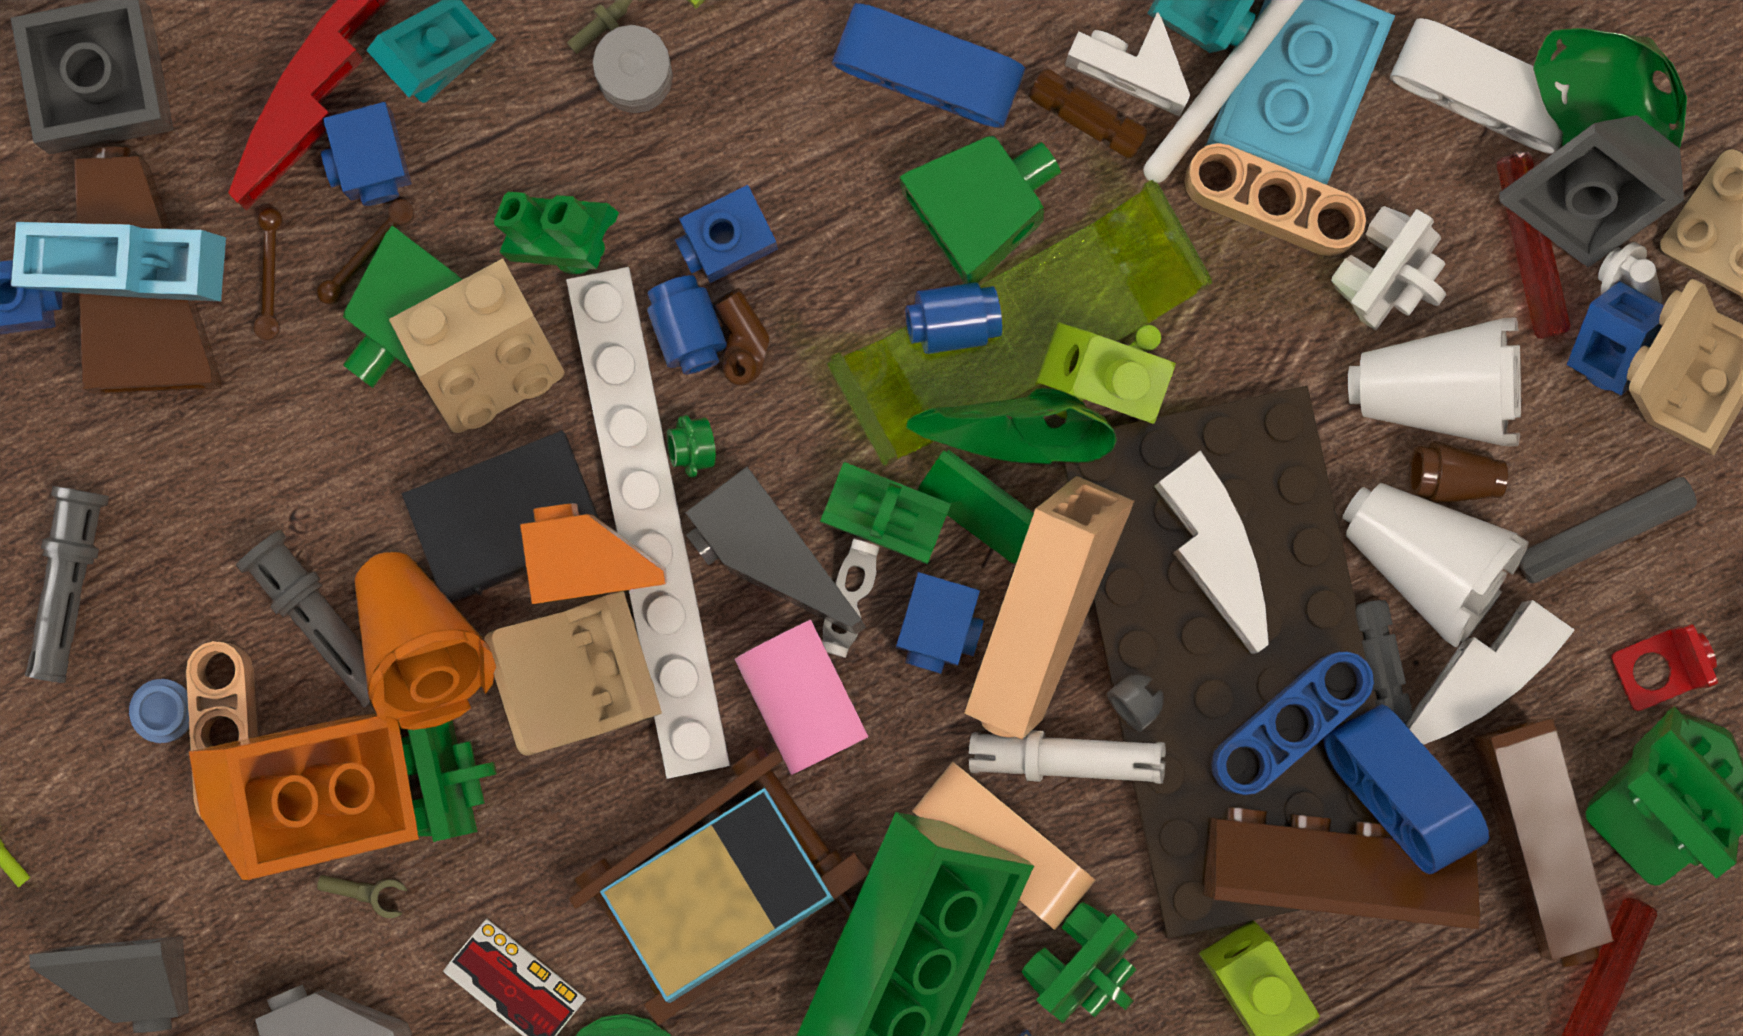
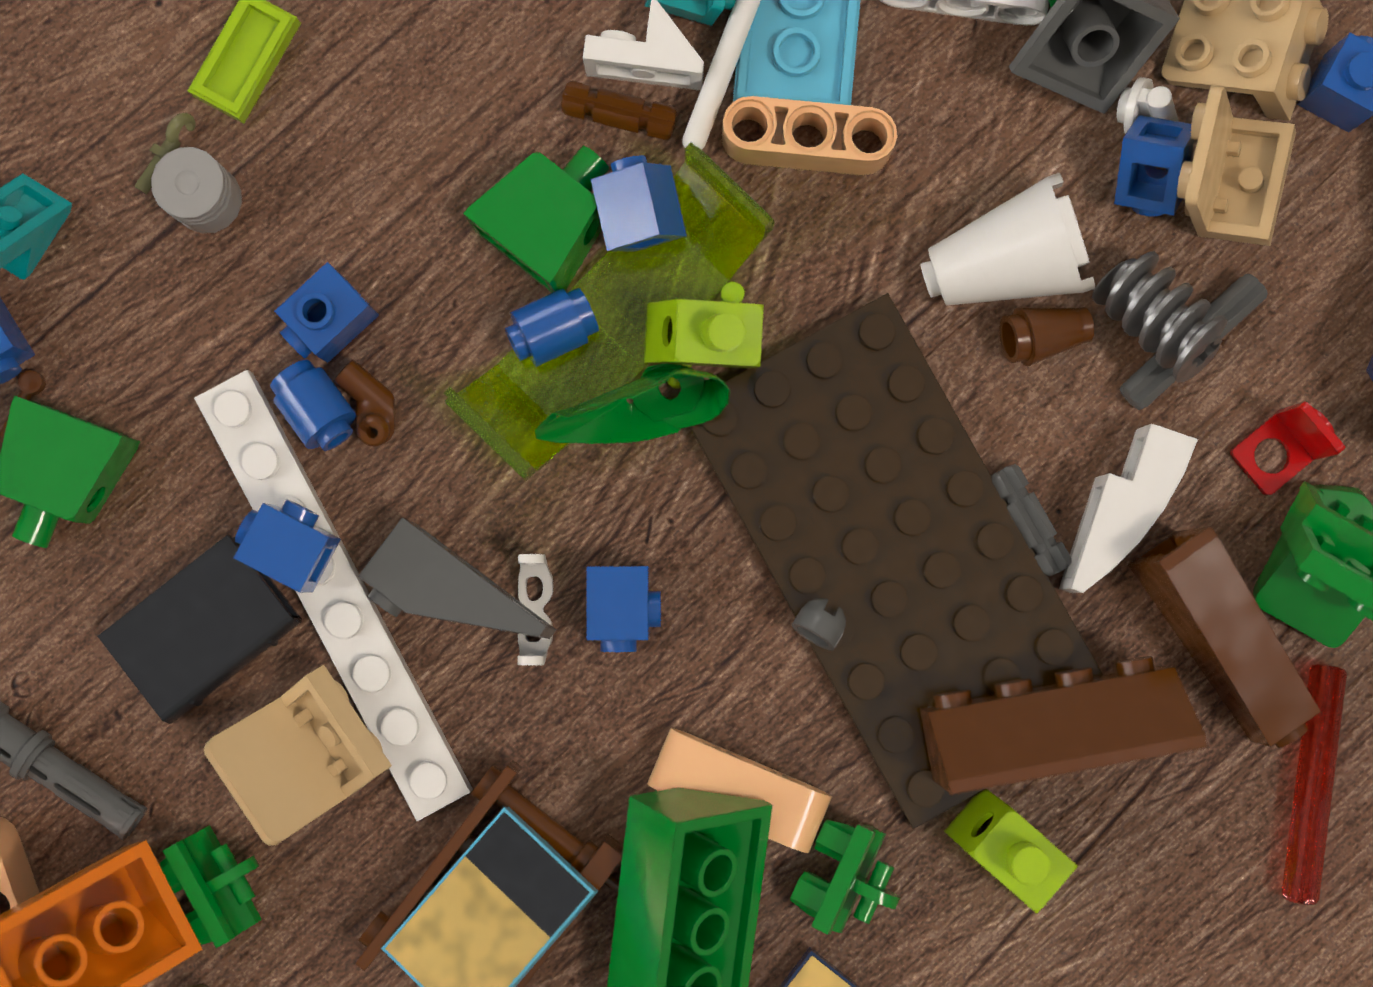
camera: 10 degrees left, 0 degrees up
(416, 645) = (144, 775): orange cone -> none
(478, 348) = (124, 484): tan bracket -> none
(554, 230) = (166, 356): green hips -> none
(581, 557) = (256, 648): orange slope -> none
(623, 458) = (286, 545): none -> blue brick
(691, 445) = (350, 512): green plate -> none
(801, 697) = (511, 715): bright pink brick -> none
(885, 512) = (542, 521): green hips -> none
(928, 65) = (462, 109): blue beam -> none
(979, 505) = (628, 489): green slope -> none
(1046, 605) = (711, 561): light nougat slope -> none
(1065, 757) = (772, 693): white pin -> none
(1079, 221) = (638, 205): none -> brick
(1219, 551) = (854, 464): white slope -> none
(1323, 716) = (995, 587): blue beam -> none
(1401, 275) = (943, 168): white hips -> none
(1406, 789) = (1095, 633): blue beam -> none
(1434, 556) = (1048, 410): white cone -> none
(1535, 259) = (1054, 119): clear red axle -> none
(1576, 493) = (1161, 315): none -> flat silver piece

